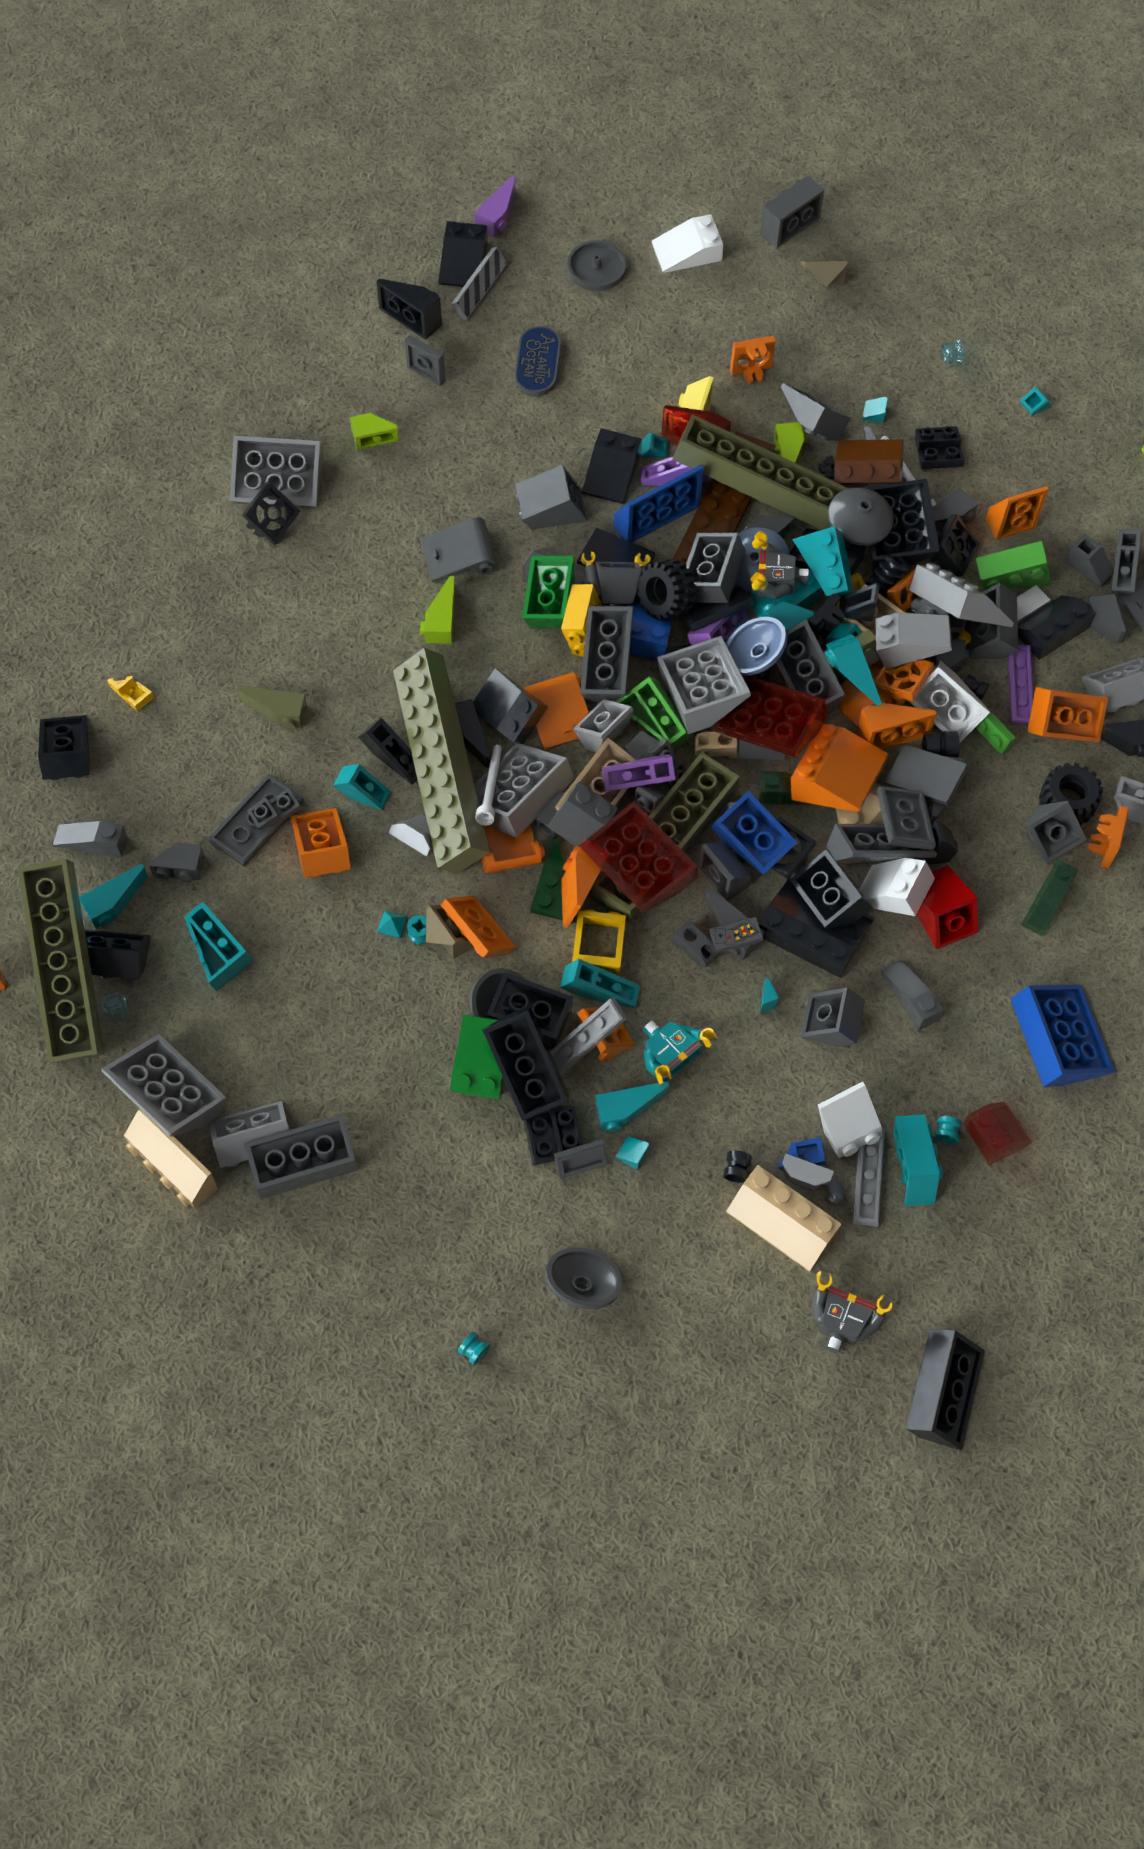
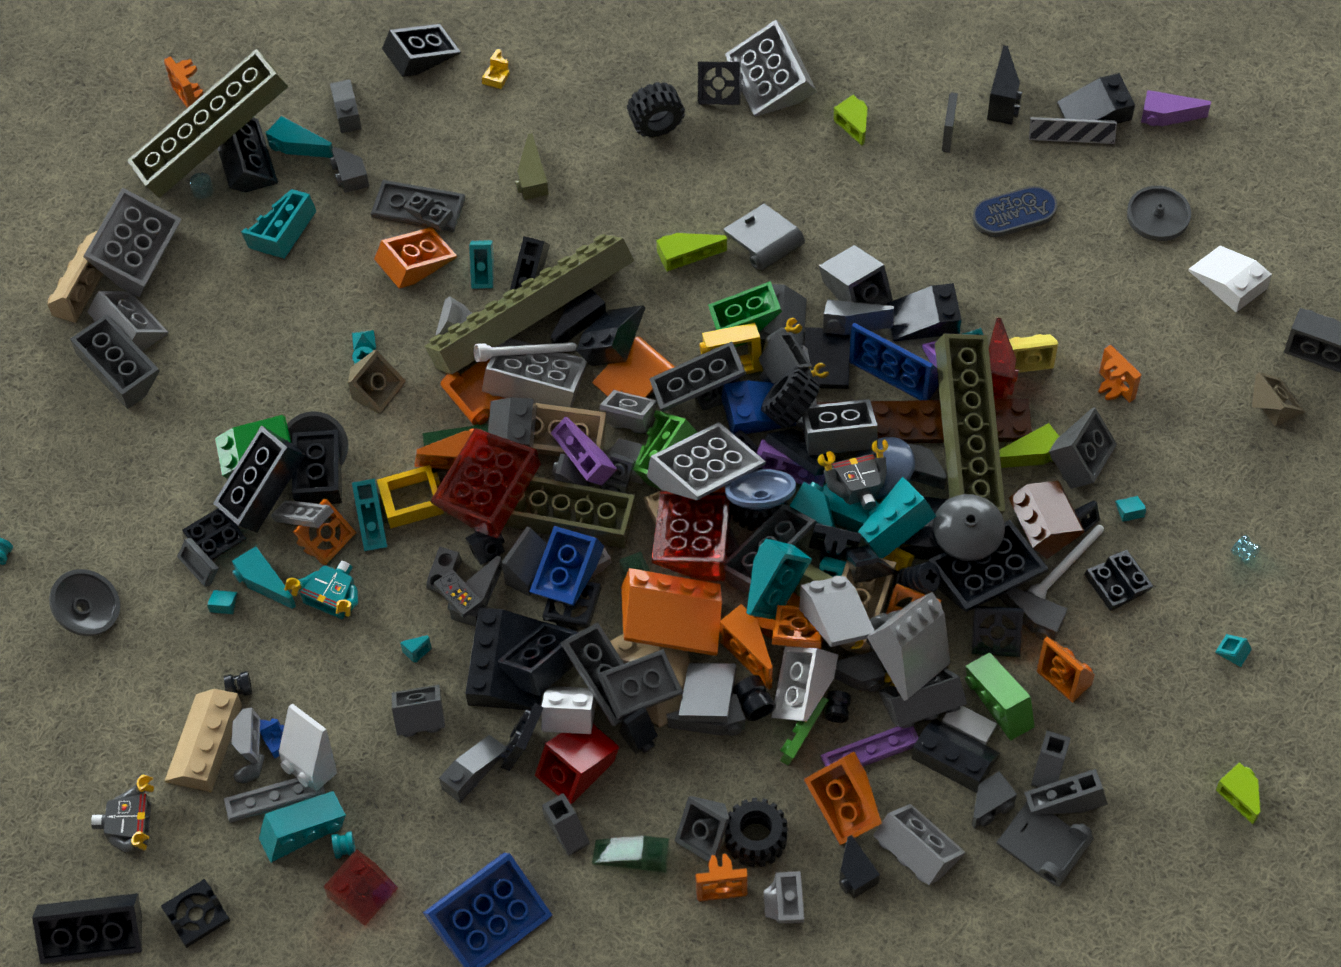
camera: 70 degrees right, 5 degrees down
(275, 572) = (655, 109): none -> black tyre
(478, 926) = (381, 398): orange plate -> none
(591, 518) = (842, 314): none -> dark grey slope
(689, 900) = (485, 547): none -> black brick
(914, 934) = (520, 736): none -> black plate
(975, 1265) = (200, 889): none -> black piece
(1002, 938) = (565, 824): none -> dark grey slope

